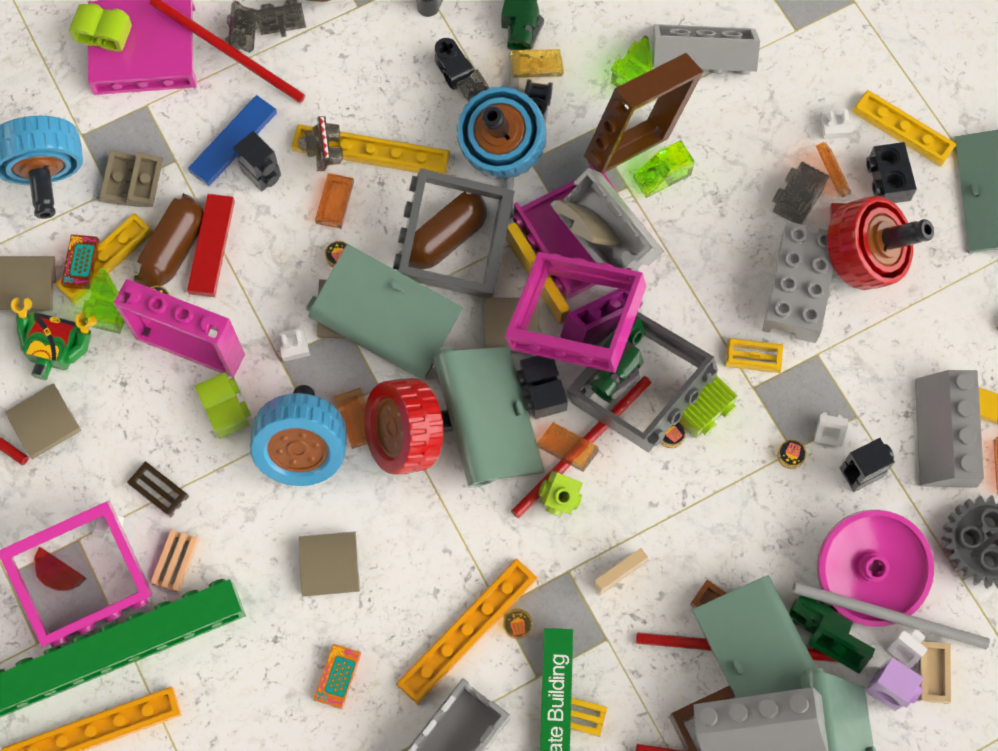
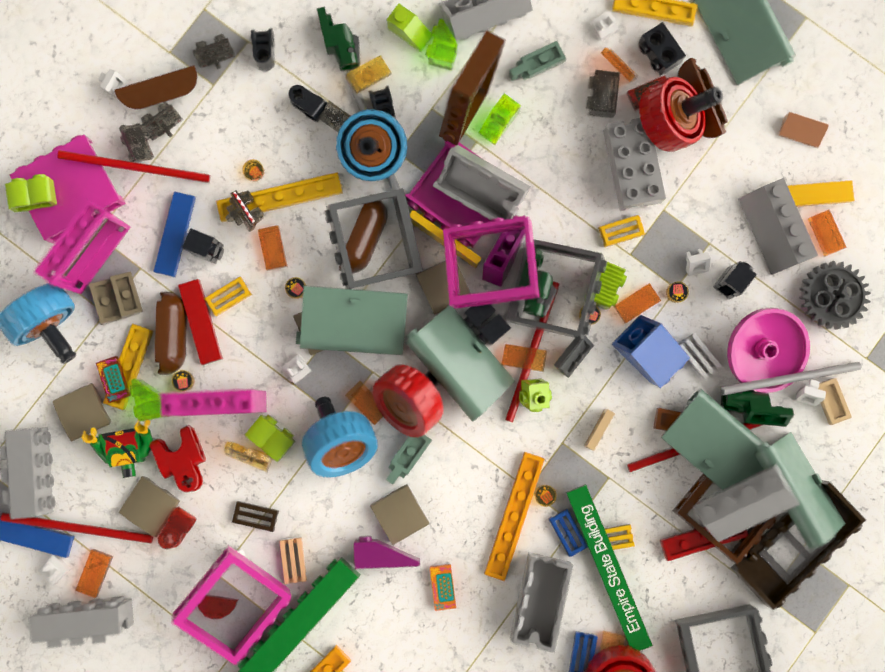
camera: 25 degrees left, 15 degrees up
(62, 458) = (178, 526): none -> clear red piece
(107, 386) = (183, 462): none -> red piece
(117, 82) = (72, 242): none -> dark pink window
(185, 412) = (248, 456): none -> clear yellow slope
(256, 232) = (217, 312): none -> yellow tile
(275, 596) = (377, 554): none -> magenta slope
(356, 110) = (253, 170): none -> clear yellow tile
(372, 499) = (407, 457): none -> sand green hinge
(525, 707) = (559, 517): none -> blue tile
(587, 223) = (471, 191): dark tan slope -> none
(605, 32) = (408, 27): none -> lime slope
(629, 470) = (573, 356): none -> dark grey plate
(728, 507) = (651, 350): none -> slope
(736, 446) = (637, 303): none -> clear orange tile
(738, 129) = (538, 62): none -> sand green hinge
(779, 518) = (716, 365): none -> white tile
(895, 685) = (814, 426): lavender brick -> none
(925, 262) = (701, 81): none -> reddish brown brick

